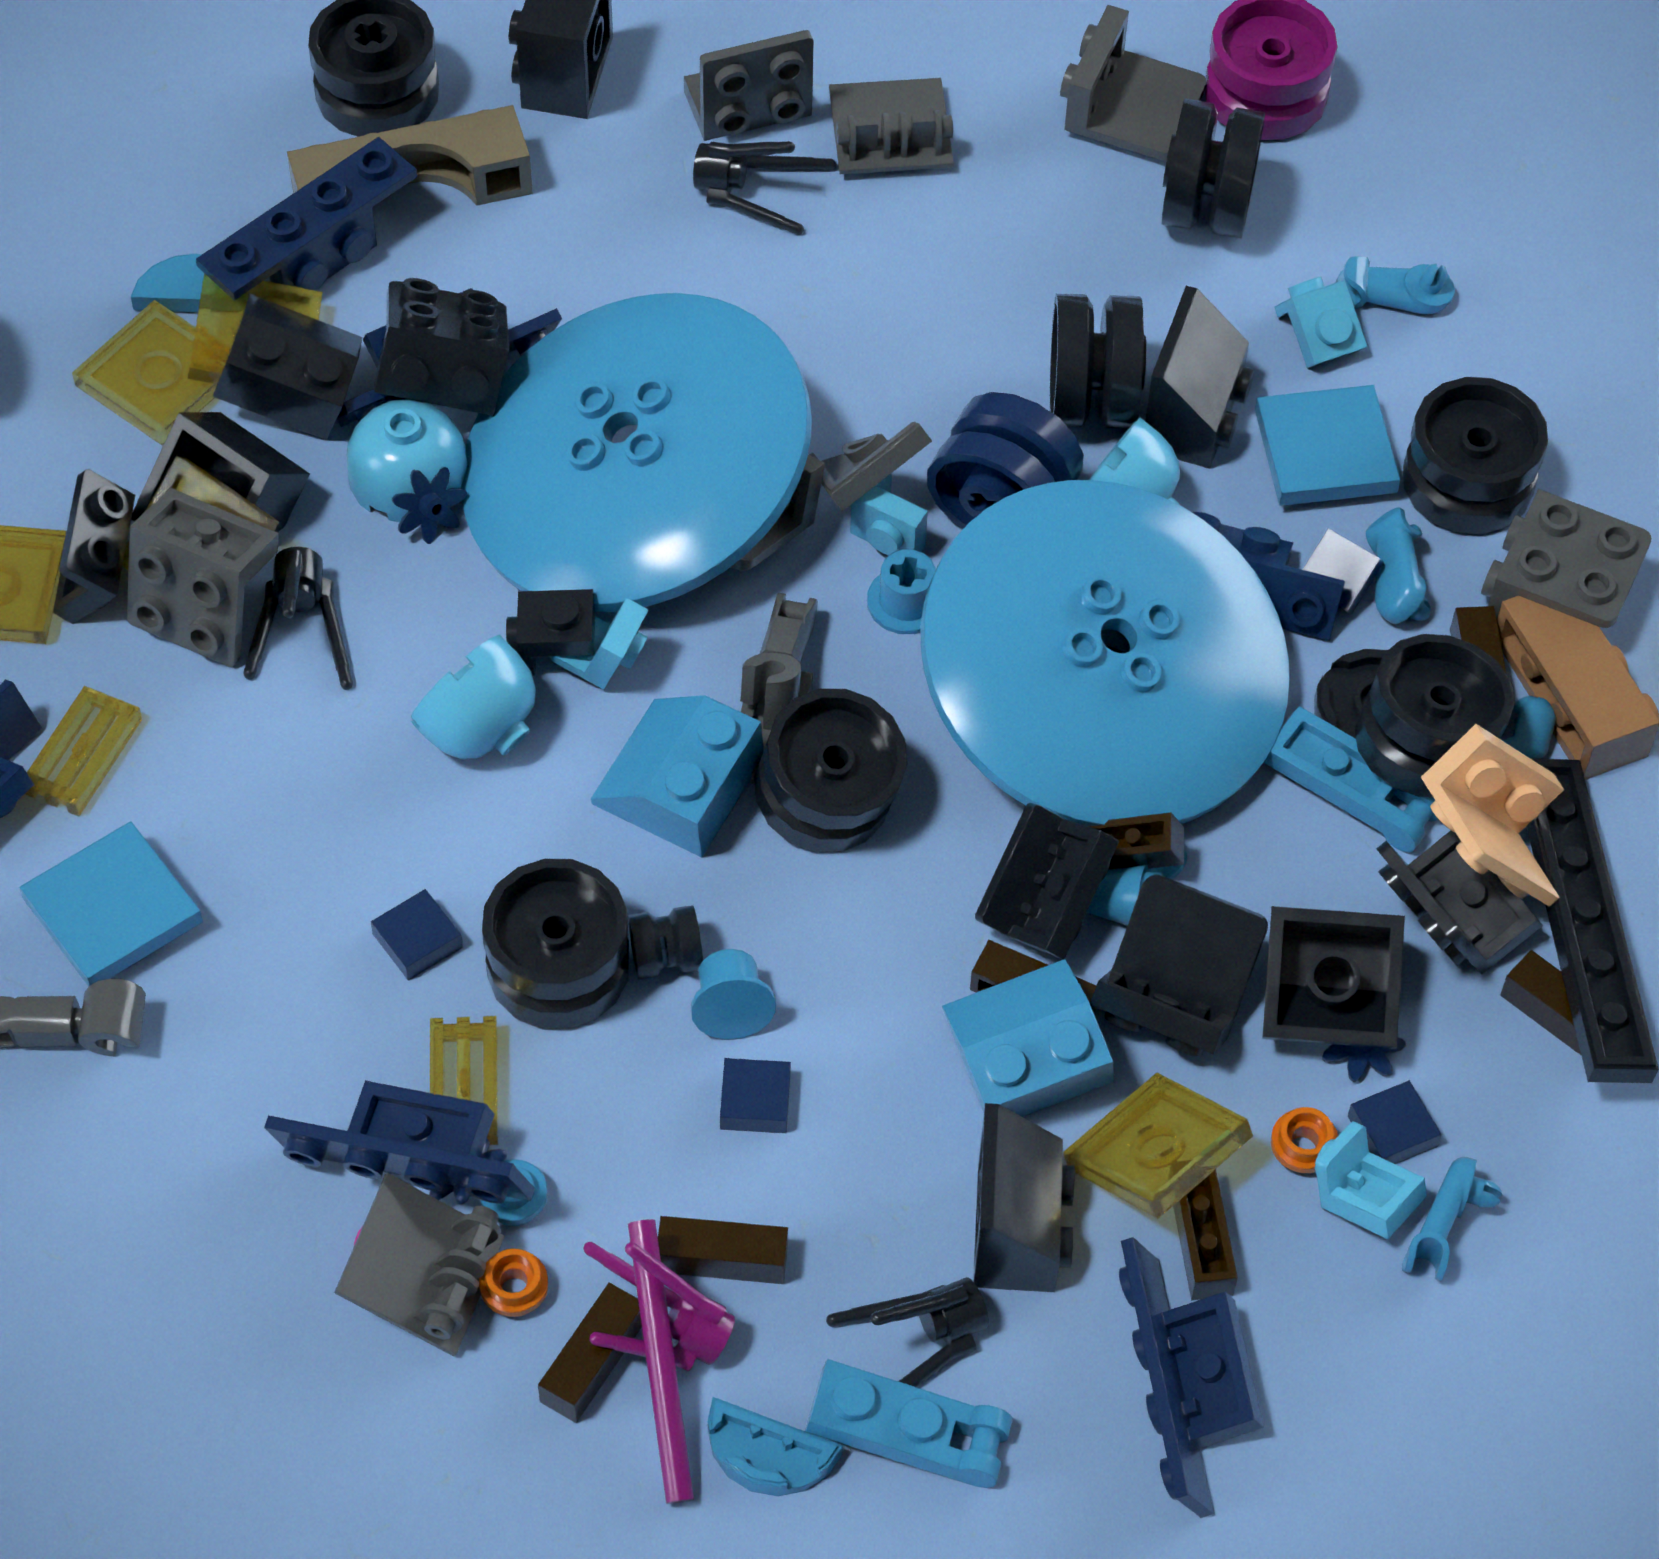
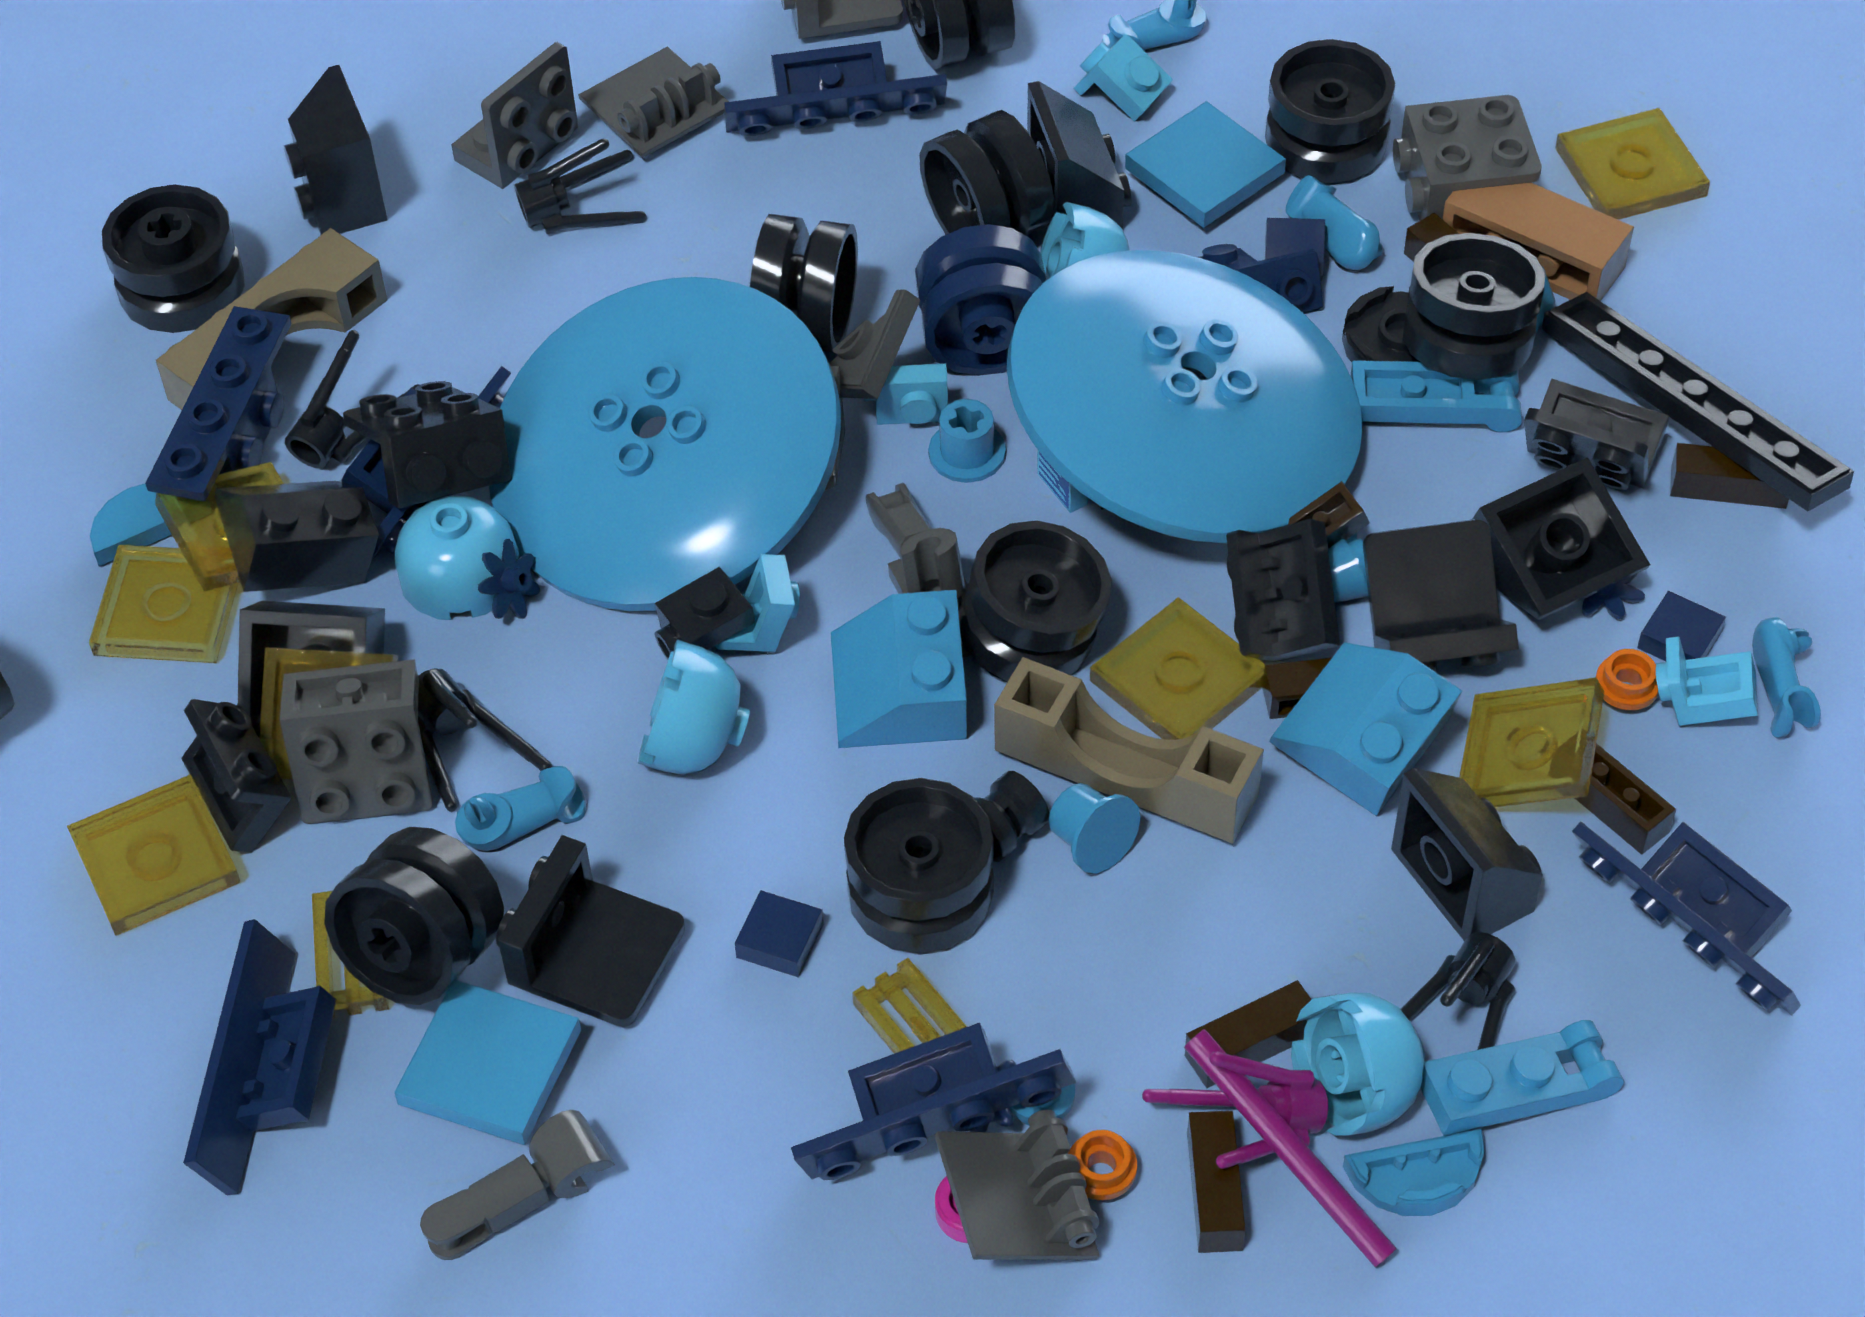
camera: 30 degrees left, 5 degrees down
(126, 750) = (414, 915): none -> black wheel
(257, 847) = (586, 939): none -> black bracket
(275, 707) = (498, 819): none -> dark azure piece
(370, 284) = (320, 429): none -> black plant
(755, 1095) = (1173, 897): dark blue tile -> none
(782, 1327) = (1363, 1058): none -> medium azure cylinder
(835, 995) = (1058, 727): none -> dark tan arch
(866, 366) = (809, 273): none -> black wheel
(918, 905) = (1178, 673): none -> clear yellow tile
(1050, 190) = (830, 86): none -> dark blue bracket
(1487, 798) = (1562, 340): light nougat bracket -> none

